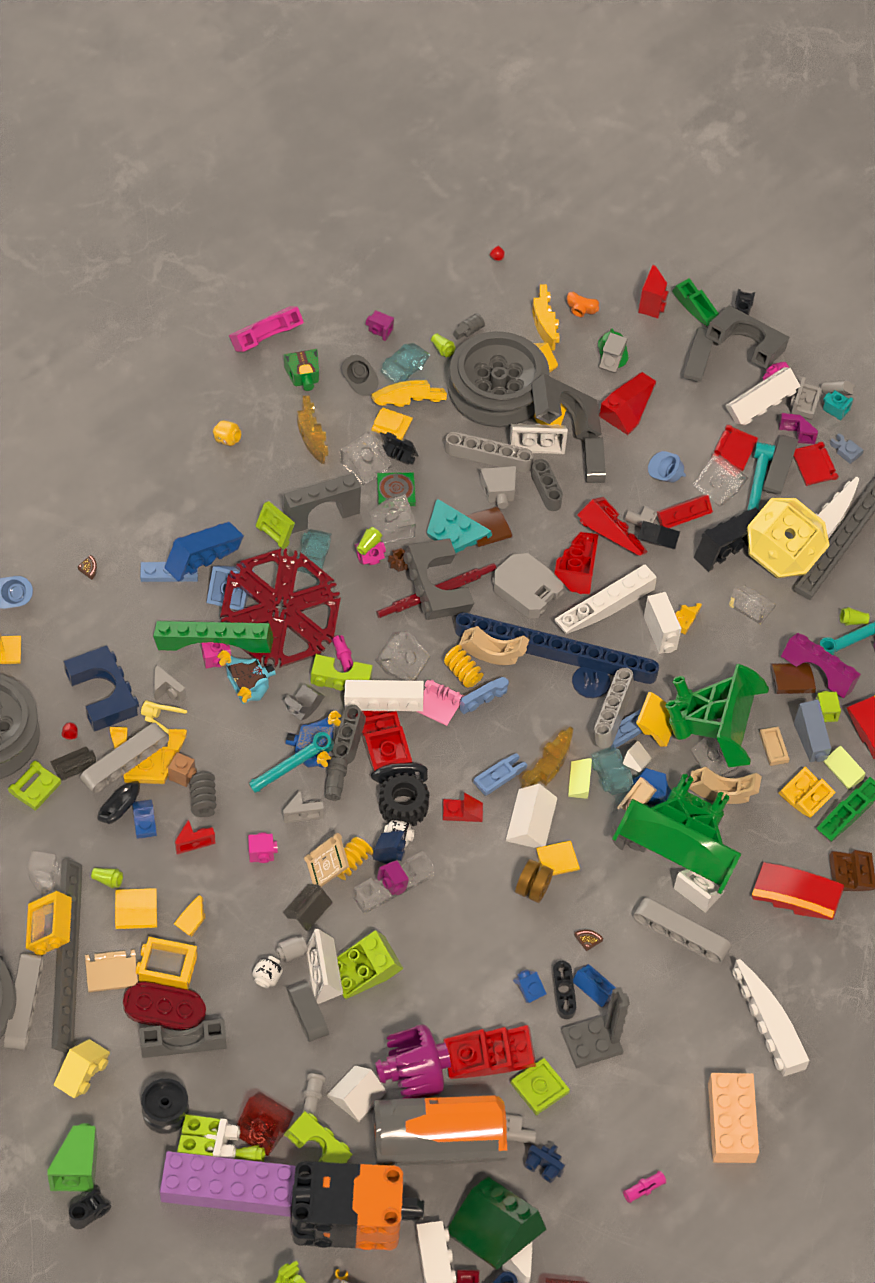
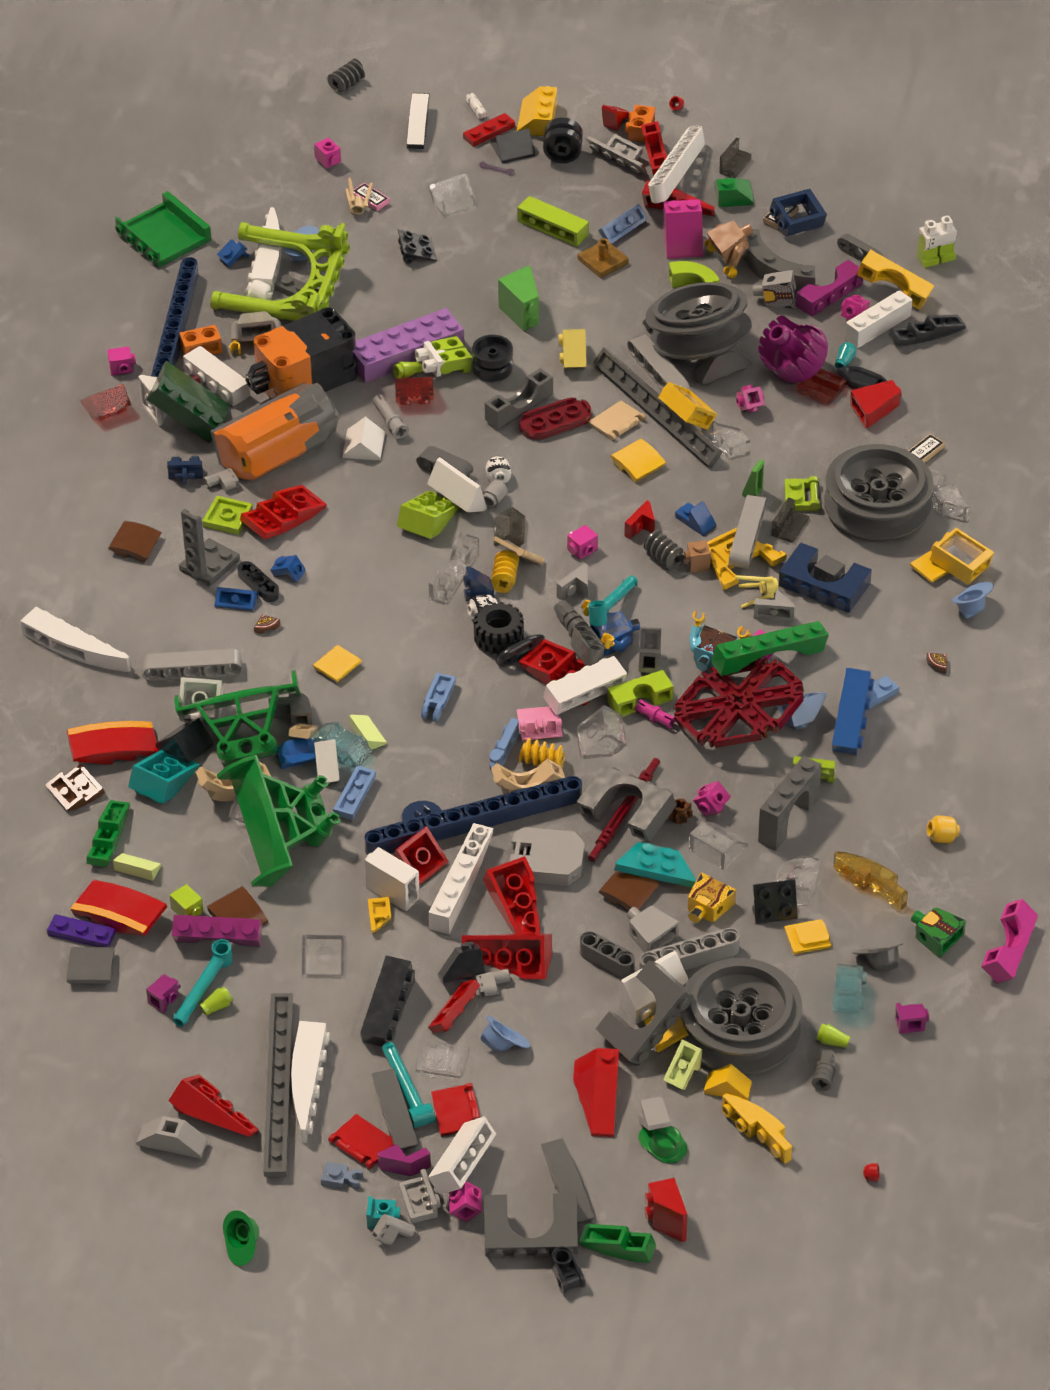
camera: 150 degrees right, 10 degrees down
(68, 810) = (755, 481): none -> bright green slope
(70, 731) = (816, 539): red hinge -> none
(91, 689) = (829, 569): none -> dark grey brick
(92, 1208) = (489, 288): black piece -> none
(108, 877) = (679, 466): lime cone -> none
(119, 803) = (723, 514): black piece -> none
(167, 963) = (577, 438): yellow window -> none
(192, 917) = (590, 476): yellow slope -> none
(308, 1129) = (374, 389): lime arch -> none
(315, 547) = (759, 770): clear light blue brick -> none
(369, 540) = (712, 783): lime cone -> none
(393, 878) = (454, 562): magenta brick -> none
(396, 484) = (742, 874): tile -> none
(402, 392) = (818, 958): yellow slope -> none
(416, 1061) = (323, 457): magenta piece -> none
(439, 481) = (709, 899): none -> torso
(463, 810) = (445, 656): red slope -> none
(532, 816) = (383, 680): white slope -> none
(534, 881) = (340, 625): pearl gold wheel -> none
(552, 761) = (403, 726): clear yellow slope -> none
(564, 375) = (683, 1065): none -> yellowish green slope
(581, 305) = (734, 1164): orange piece -> none
(594, 460) = (581, 1006): dark grey beam -> none
(614, 708) = (378, 784): light grey beam -> none
(625, 639) = (422, 854): none -> red slope
(644, 1187) = (98, 495): dark pink pin -> none
(645, 1106) = (134, 540): none -> reddish brown slope
(655, 719) = (338, 796): yellow slope -> none
(733, 1118) = (58, 563): light nougat brick -> none
(750, 858) = (187, 741): none -> black slope
(773, 834) = (161, 776): none -> teal slope
(774, 550) = (328, 1015): light yellow piece -> none
(774, 746) = (215, 851): tan tile -> none
(806, 792) = (158, 828): yellow slope -> none
(812, 731) = (185, 868): sand blue slope -> none

